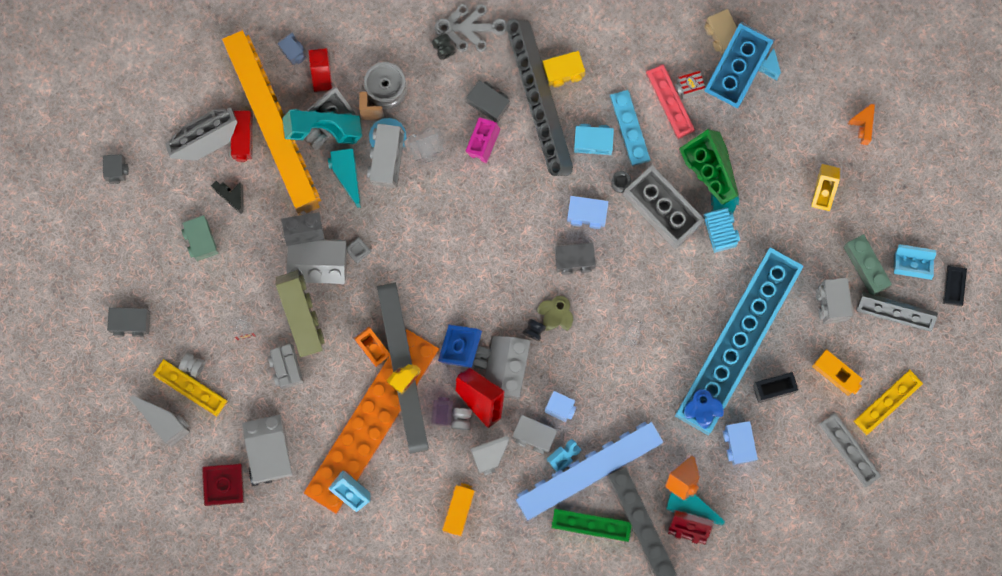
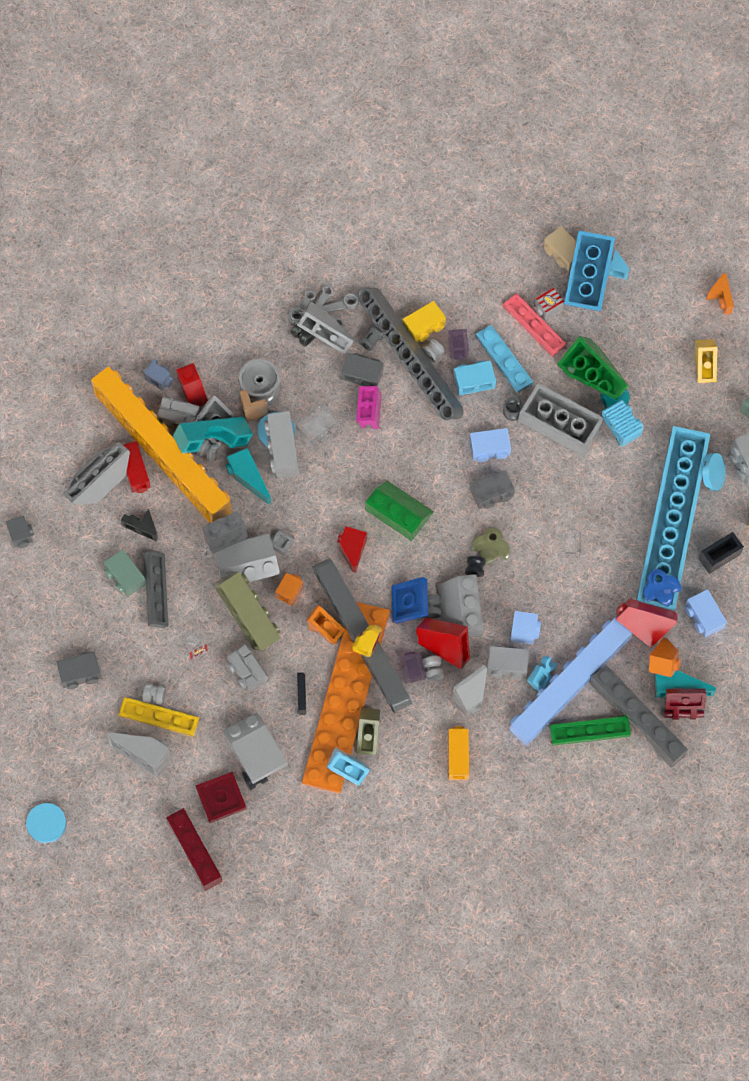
camera: 20 degrees left, 10 degrees down
(55, 459) = (46, 823): none -> medium azure tile
(181, 530) = (194, 849): none -> dark red arch
(225, 263) = (156, 589): none -> dark grey plate
(298, 92) = (177, 412): none -> light grey brick
(329, 407) = (301, 693): none -> black tile
(350, 299) = (289, 588): none -> orange brick
(380, 462) = (368, 731): none -> olive slope
(423, 274) = (352, 545): none -> red slope
(463, 47) = (325, 327): none -> light grey slope
(479, 250) = (398, 510): none -> green slope
(506, 70) = (370, 338): none -> dark grey bush
(563, 99) = (433, 350): none -> light grey wheel
(589, 100) = (458, 344): none -> clear purple brick
(679, 435) = (646, 620): none -> slope
(796, 304) = (714, 472): none -> medium azure tile

